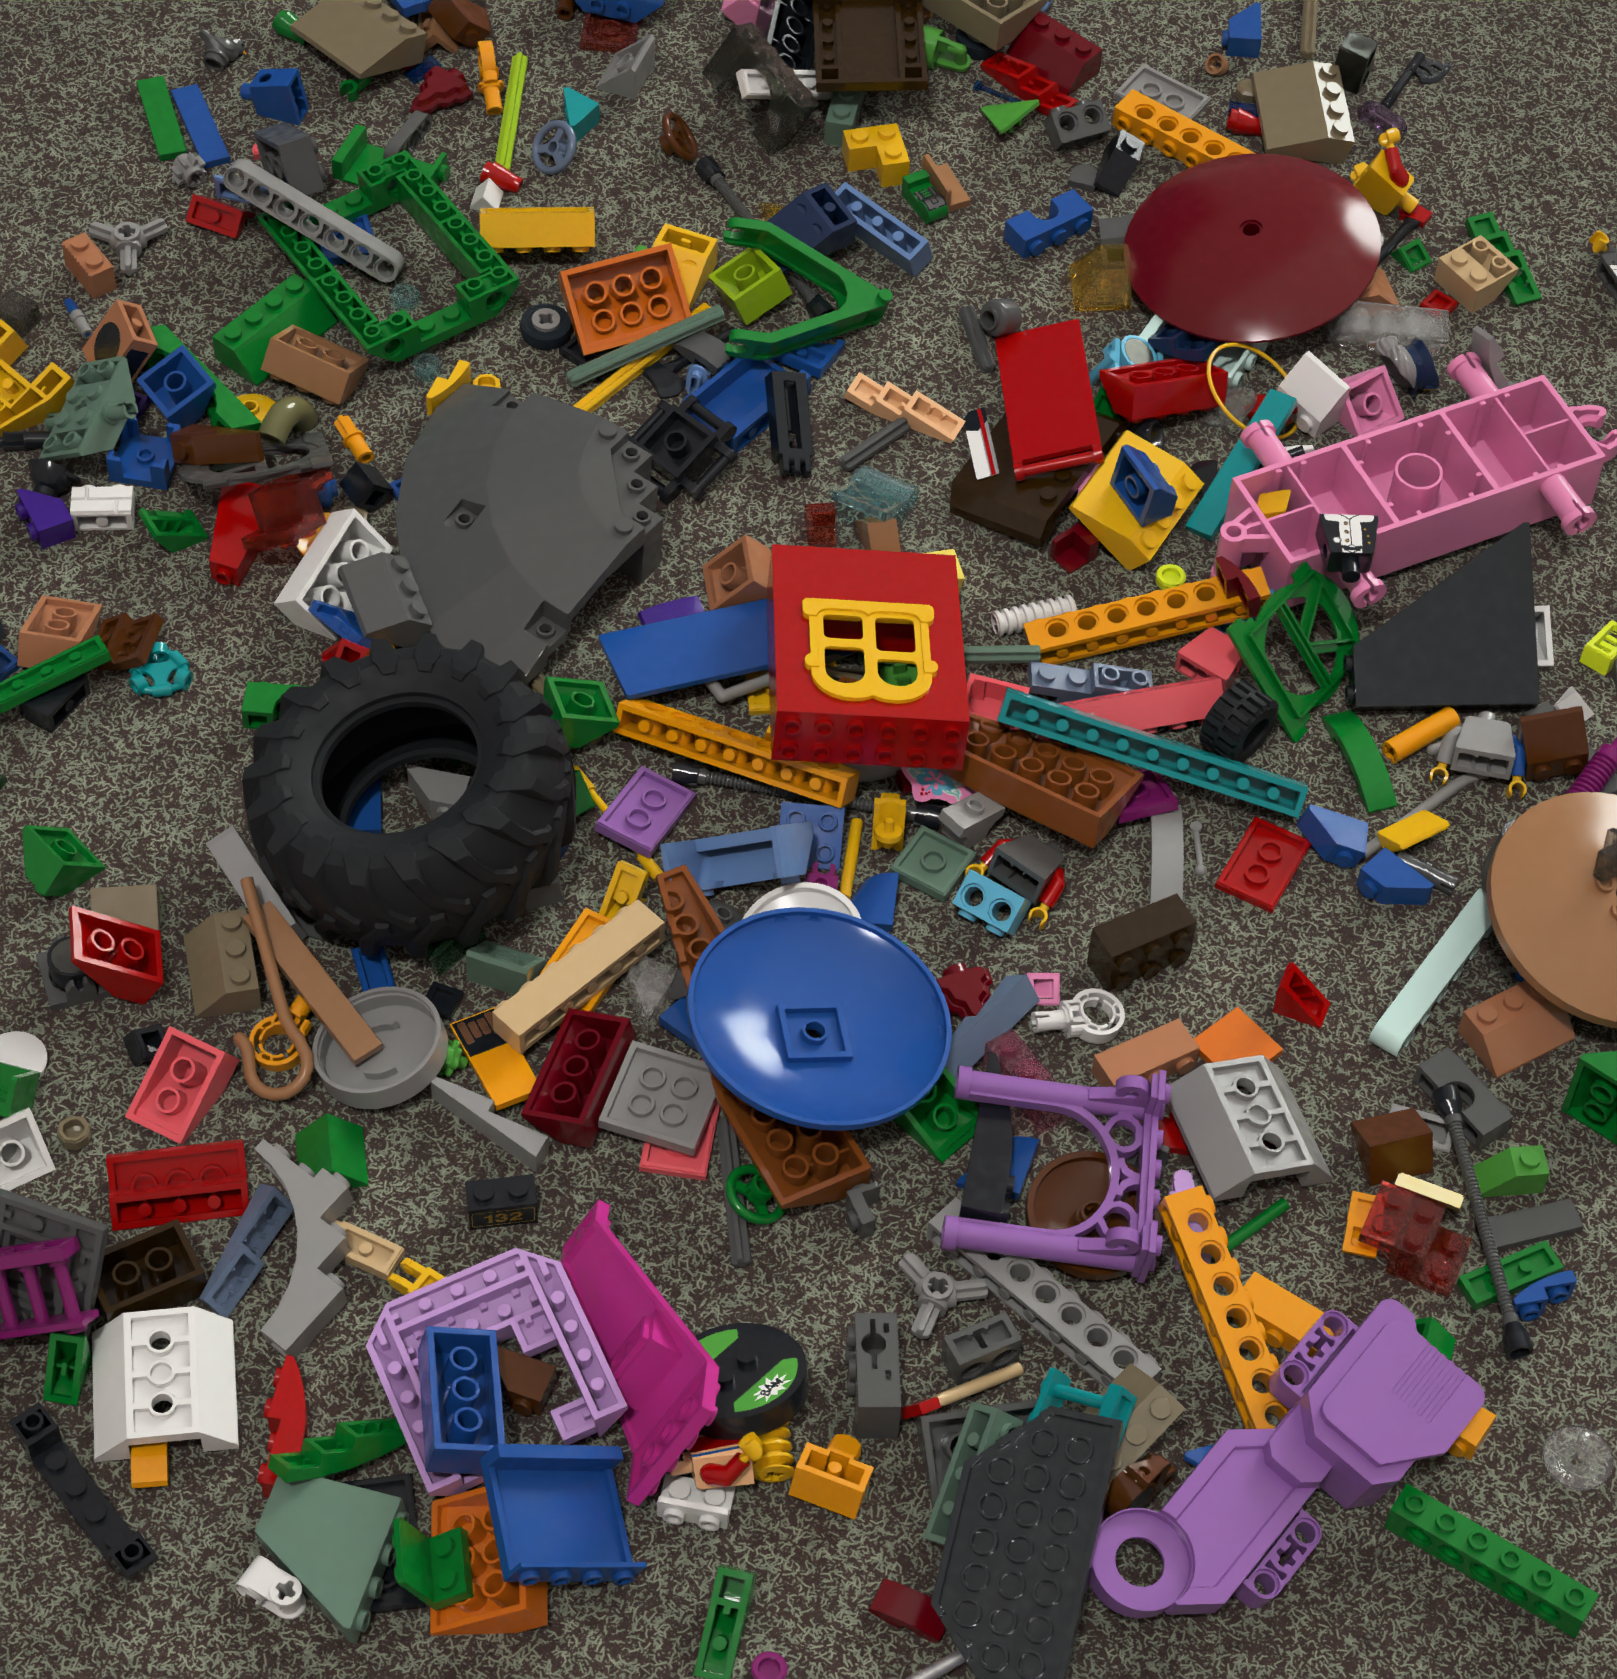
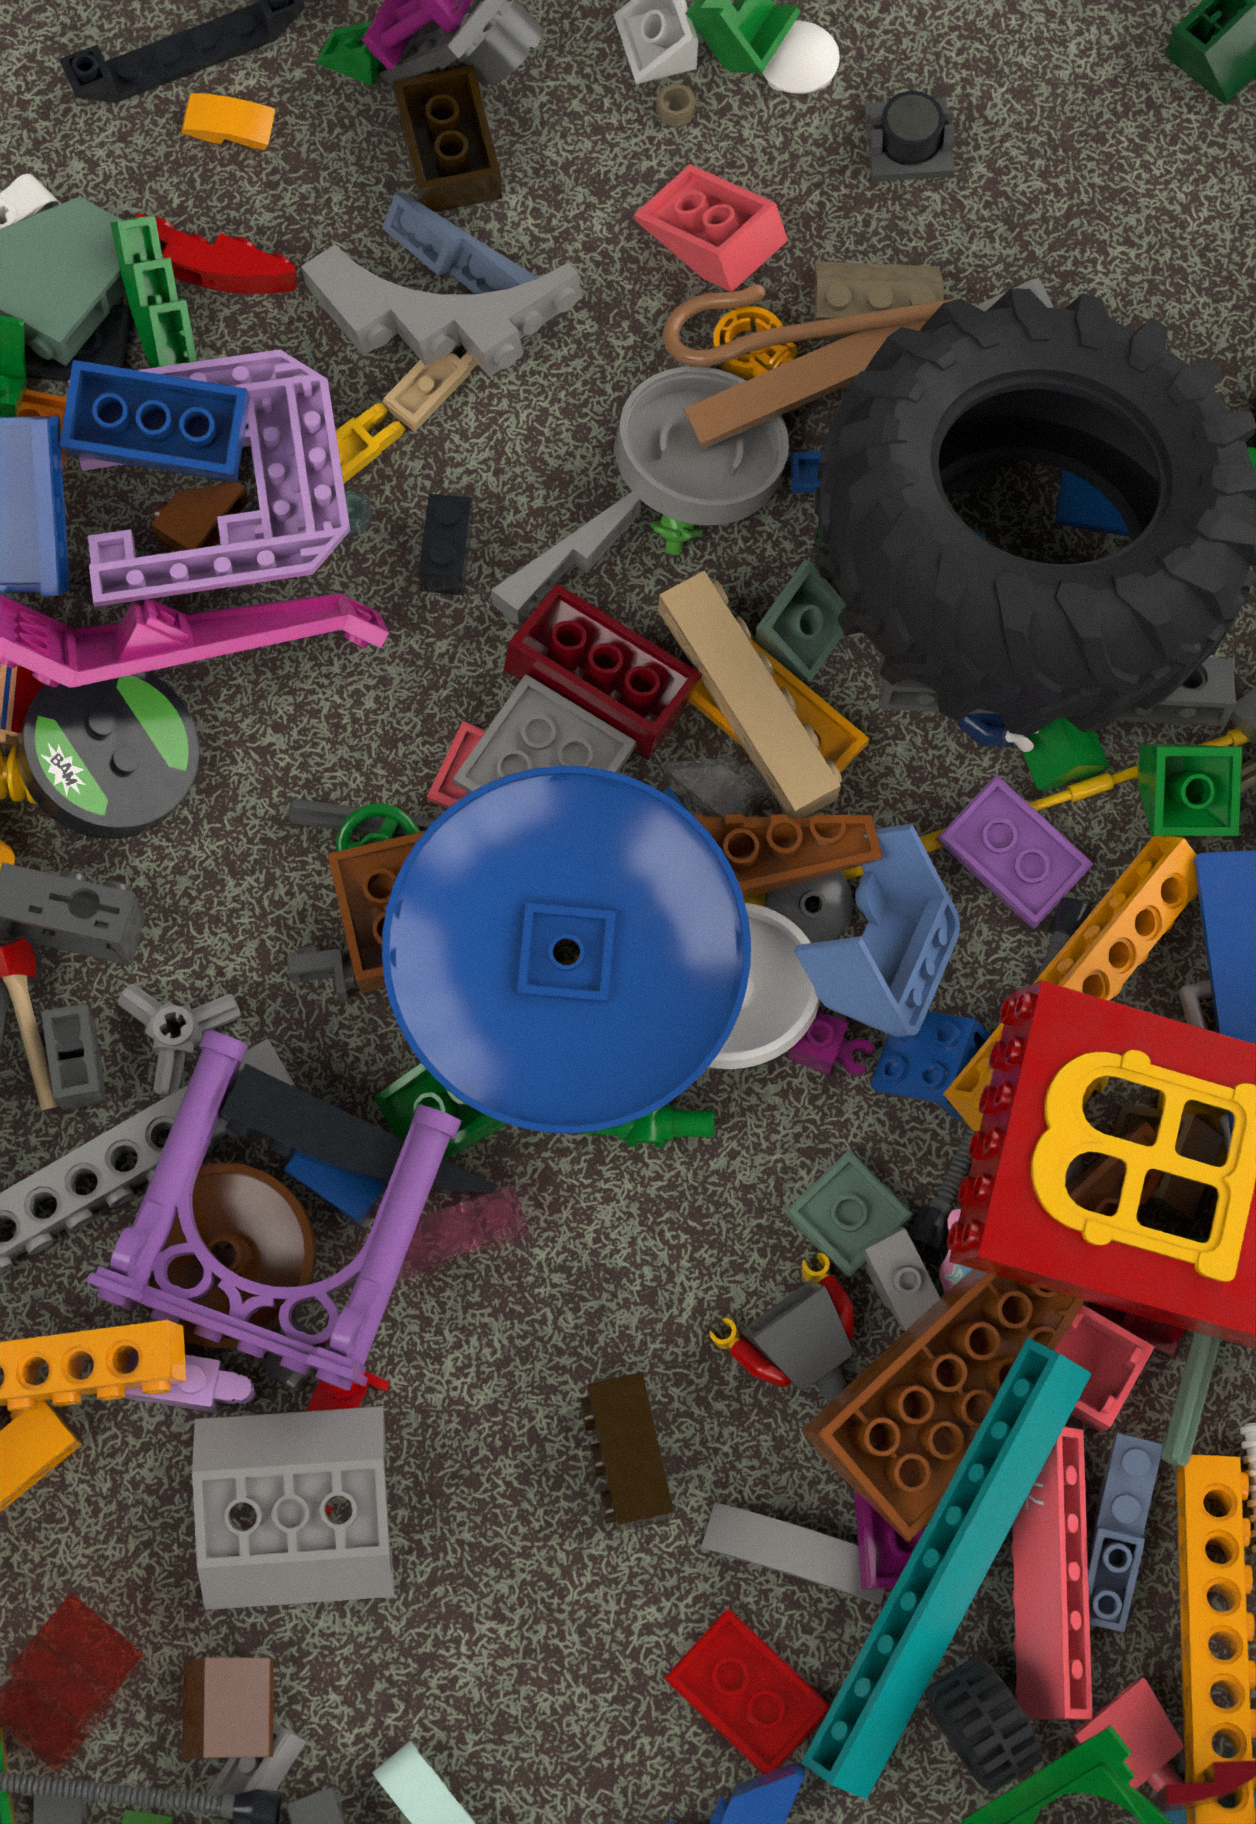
camera: 105 degrees right, 20 degrees up
(57, 860) = (1083, 138): green slope -> none
(116, 954) = (901, 156): red slope -> none
(129, 903) = (989, 201): dark tan slope -> none
(143, 1043) = (788, 196): black slope -> none
(177, 1183) = (574, 199): red slope -> none
(190, 1373) = (295, 166): white slope -> none
(335, 1147) = (569, 377): green slope -> none
(445, 999) = (771, 543): black tile -> none
(496, 1064) = (631, 586): light orange piece -> none
(624, 888) = (875, 789): yellow slope -> none
(851, 857) = (883, 1107): yellow bar -> none
(877, 900) = (794, 1111): blue slope -> none
(888, 822) = (914, 1160): yellow hips -> none
(965, 989) = (616, 1196): dark red rock -> none
(993, 899) = (753, 1269): medium azure brick -> none
(998, 1015) = (538, 1183): sand blue slope -> none
(1046, 986) = (615, 1306): bright pink slope -> none
(1074, 1022) = (545, 1310): white pin -> none
(1162, 1048) = (449, 1407): nougat brick -> none
(1200, 869) = (836, 1614): light grey hinge -> none
(1236, 1038) = (448, 1546): orange tile -> none
(1256, 1224) = (163, 1467): green bar -> none
(1300, 999) = (505, 1667): red slope -> none
(1357, 1214) = (139, 1627): light orange slope -> none
(1451, 1199) = (125, 1726): light yellow tile -> none

